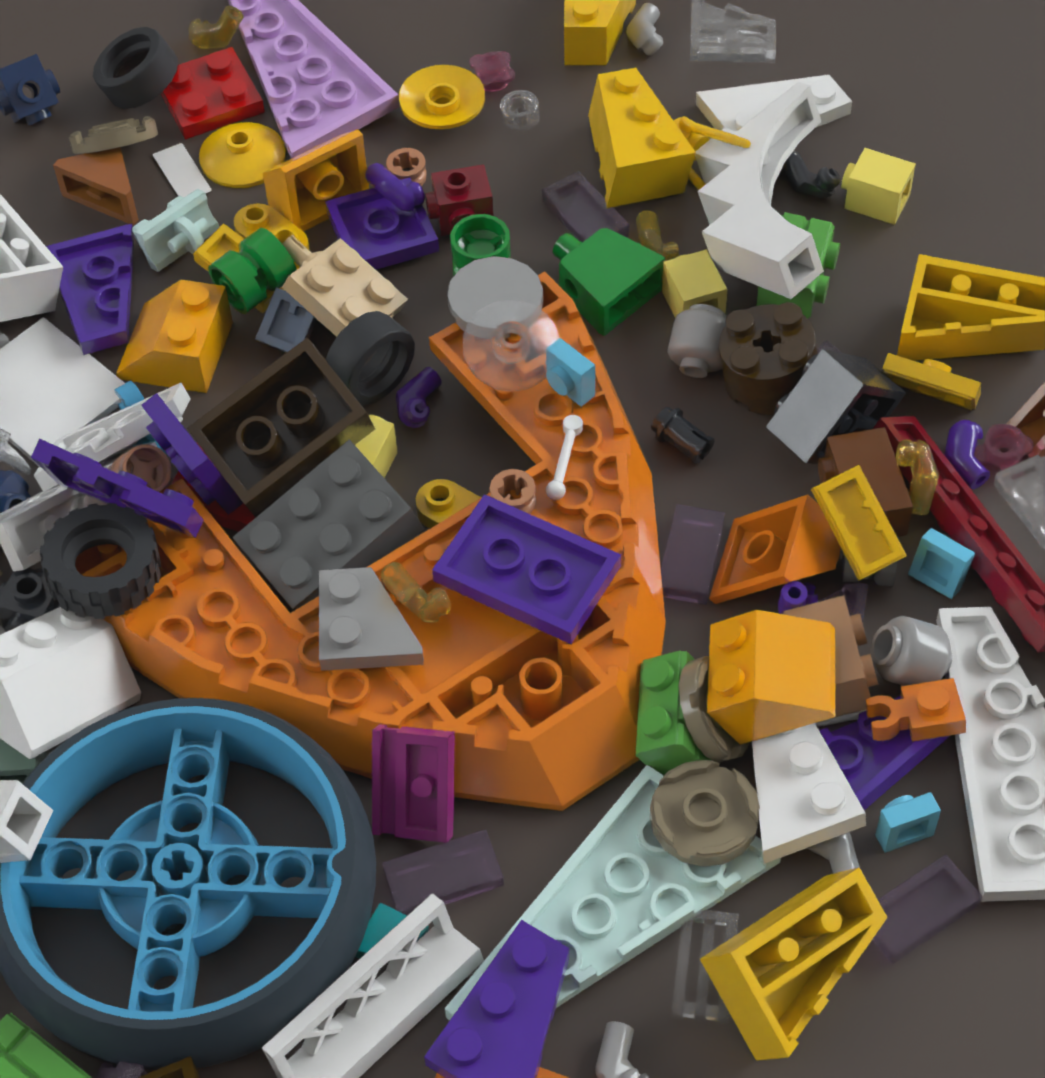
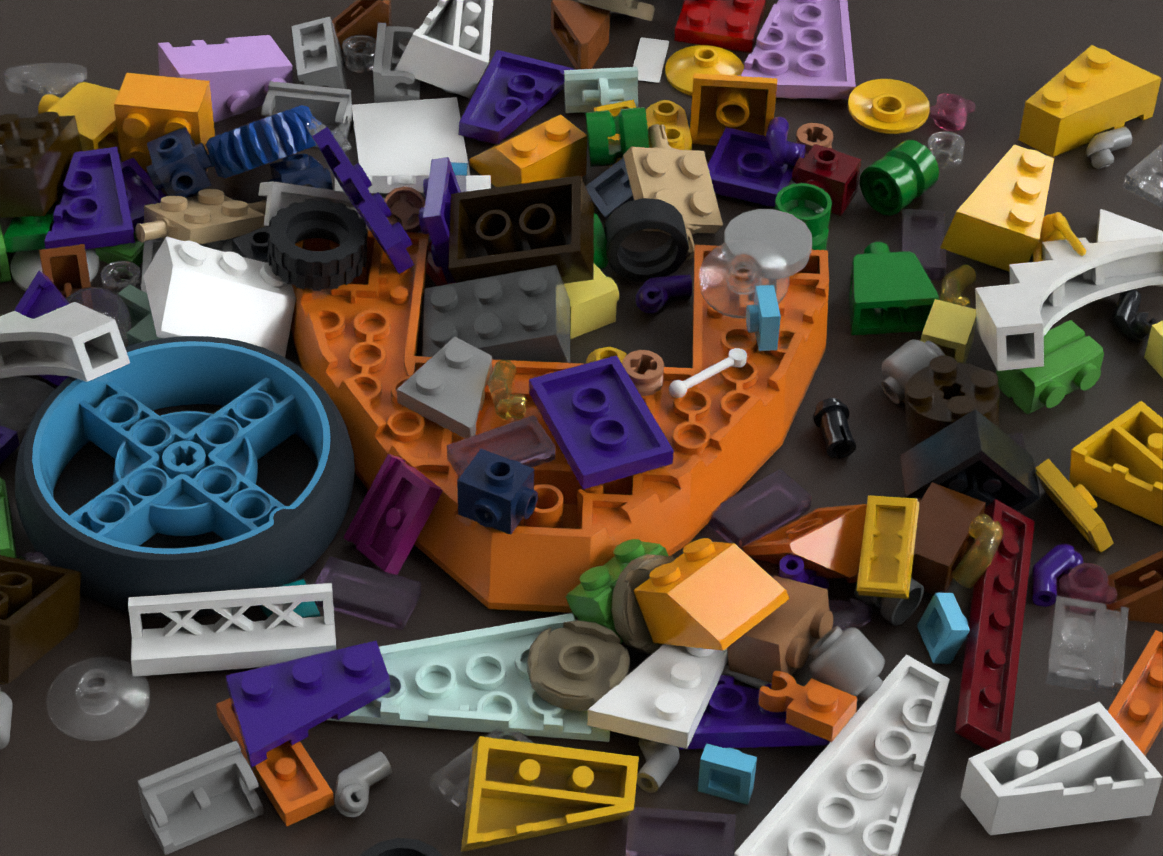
camera: 35 degrees right, 10 degrees down
(466, 658) = (519, 441): none -> tile
(517, 161) = (899, 177): none -> green wheel
(517, 702) = (496, 491): none -> dark blue brick

